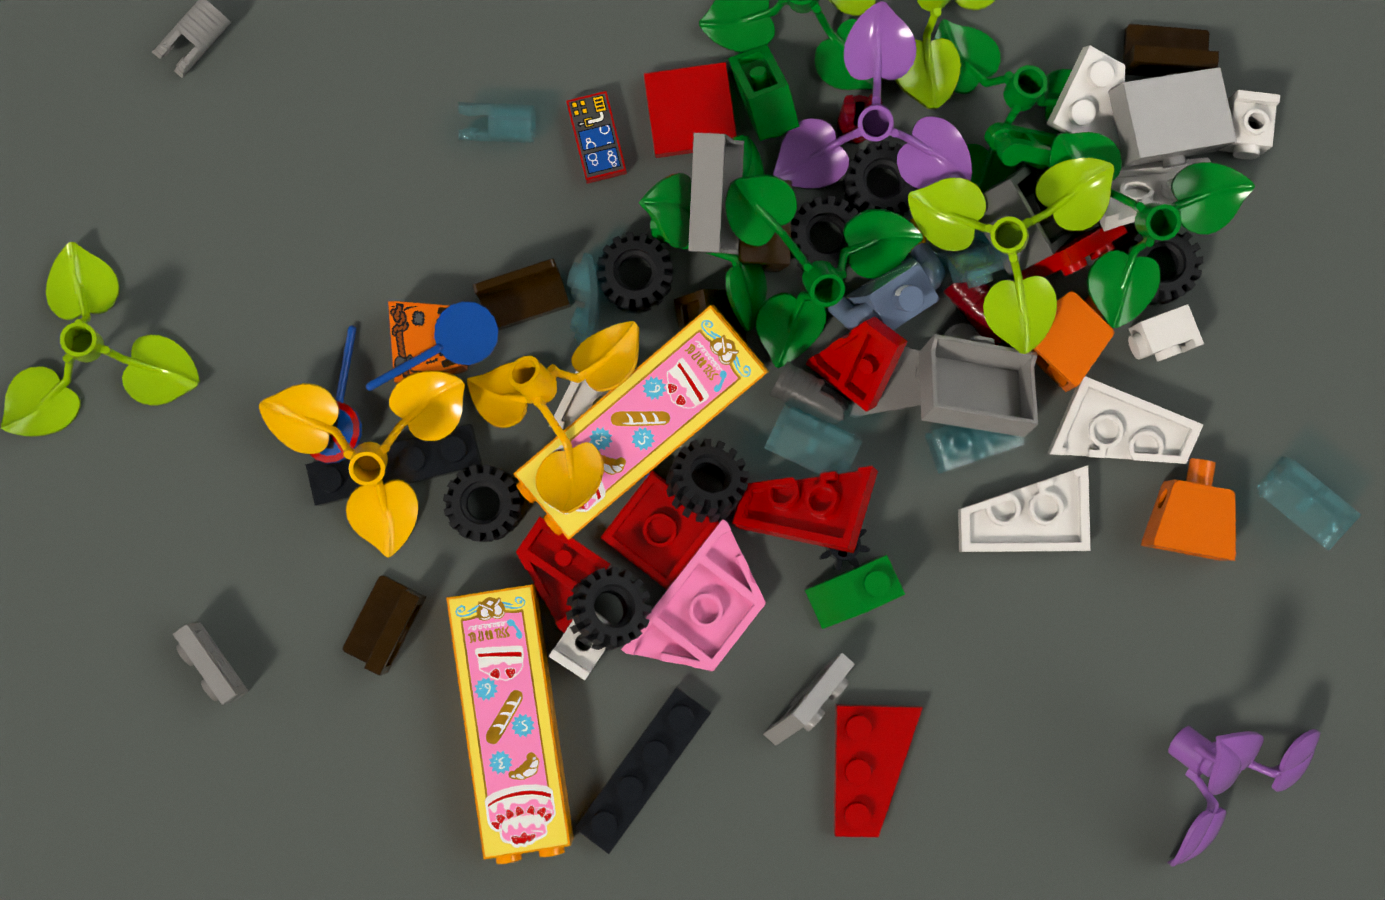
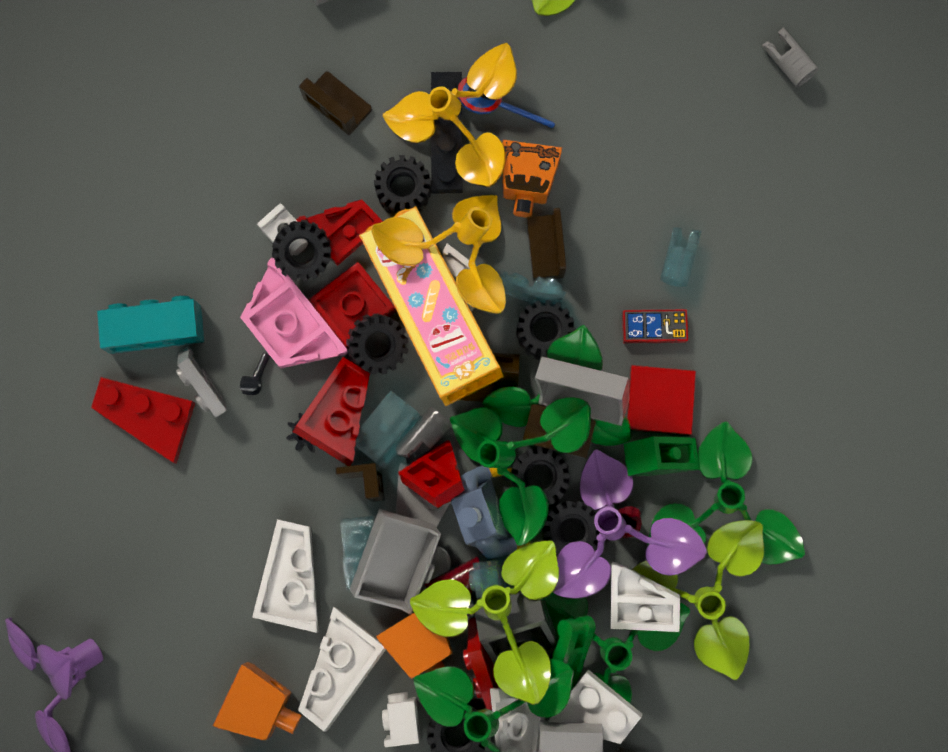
camera: 105 degrees right, 5 degrees down
(463, 334) = (524, 194): blue piece -> none
(510, 723) = (244, 170): brick -> none
(642, 770) = (187, 255): black plate -> none
(750, 789) = (150, 325): none -> teal brick
(796, 633) = (253, 385): none -> black hand
(855, 591) = (269, 433): green slope -> none
(877, 443) = (372, 479): none -> dark brown panel
(953, 73) = (641, 602): none -> white wing

